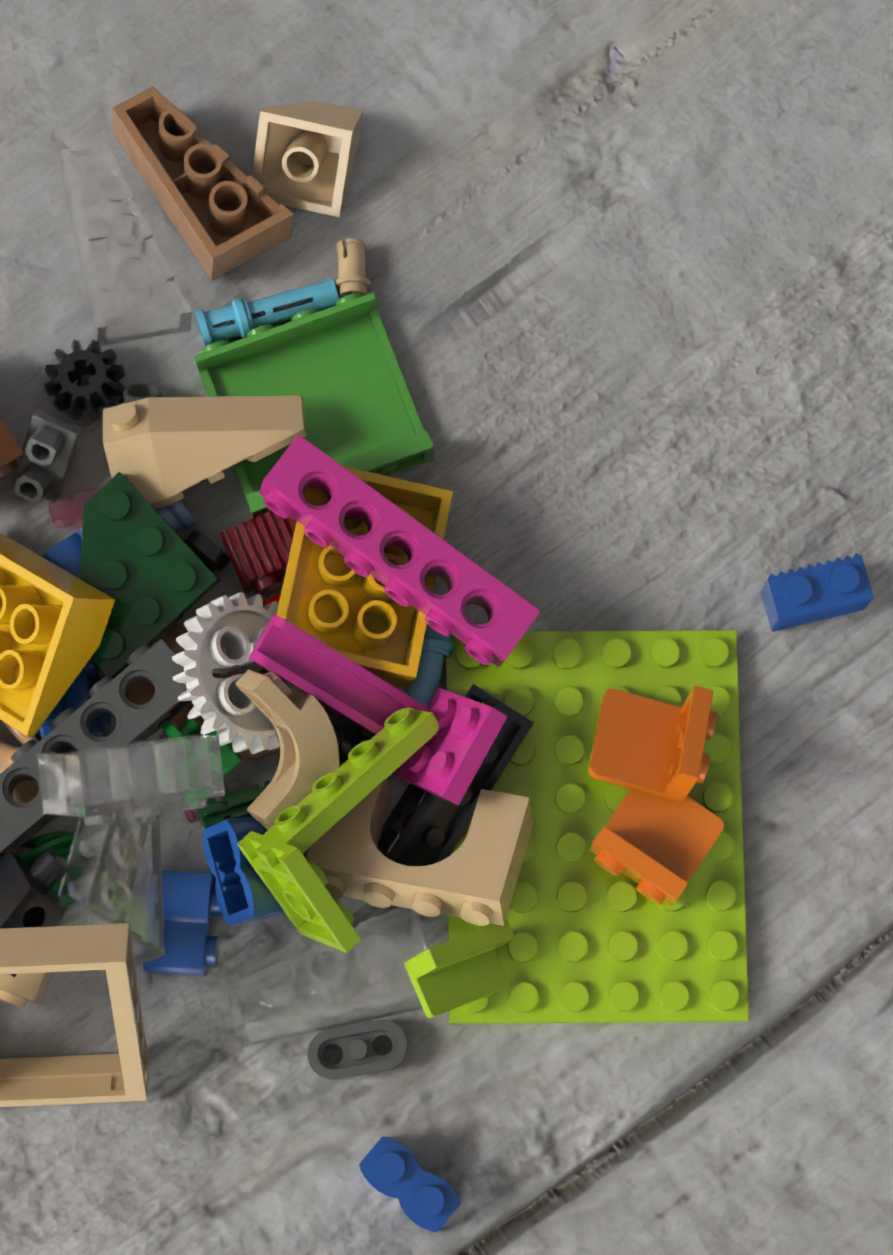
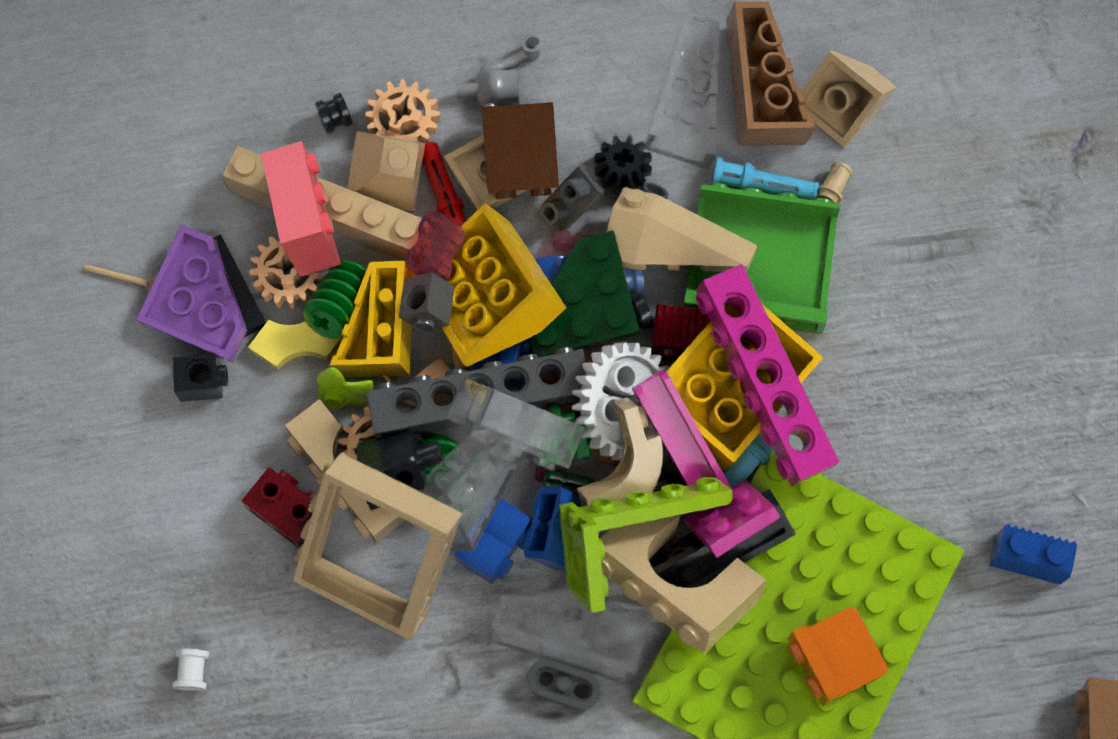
camera: 30 degrees right, 5 degrees down
(459, 970) = (659, 666): lime panel -> none
(653, 742) = (868, 591): orange bracket -> none

